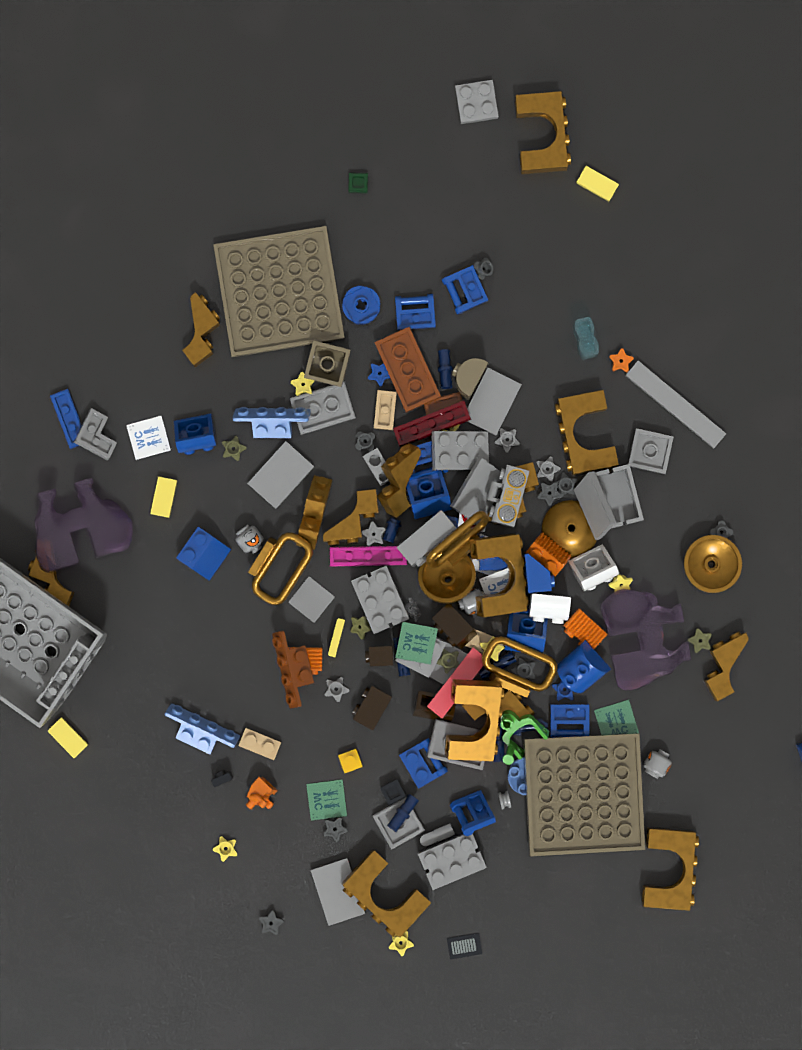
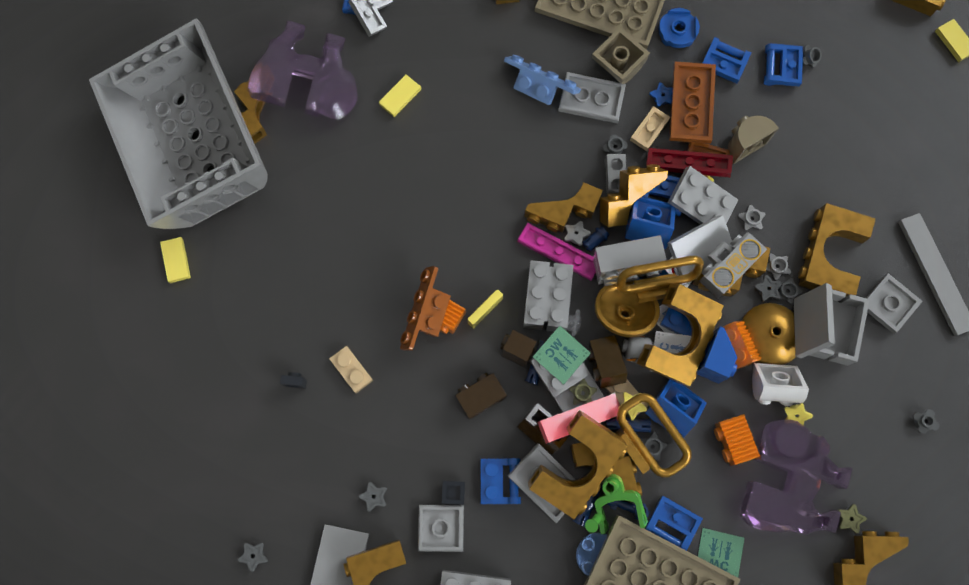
camera: 25 degrees right, 10 degrees down
(148, 437) = (418, 39): white sticker -> none
(195, 434) = (461, 55): blue brick -> none
(199, 731) = (301, 324): medium blue bracket -> none
(203, 553) = (405, 162): blue slope -> none
(225, 853) = (251, 457): light yellow plate -> none
(238, 448) = (489, 83): olive plate -> none
(249, 539) = (456, 172): light grey head -> none
(260, 793) = (321, 417): orange piece -> none
(267, 557) = (459, 197): pearl gold bar -> none
(280, 475) = (519, 134): light grey tile -> none
(302, 389) = (586, 62): light yellow plate -> none
(311, 599) = (481, 262): light grey sticker -> none
(314, 509) = (532, 179): pearl gold arch -> none
(326, 800) = (383, 463): clear green sticker -> none
(341, 689) = (454, 365): light grey plate -> none
(350, 760) = (429, 437): yellow plate -> none
(365, 626) = (519, 311): olive plate -> none
(403, 813) = (451, 519): dark blue pin -> none
(437, 835) = (474, 564): light grey bar -> none
(445, 369) = (727, 123): dark blue pin -> none
(478, 809) = (530, 562): blue plate -> none
(492, 401) = (756, 175): light grey tile -> none
(504, 800) = (562, 567): light grey bush -> none
(549, 607) = (715, 394): white brick -> none
(560, 693) = (684, 495): blue plate -> none
(582, 668) = (716, 476): blue brick -> none
(584, 333) = (880, 164): clear light blue brick -> none
(616, 363) = (898, 209): orange plate -> none
(726, 563) = (918, 443): pearl gold dish -> none

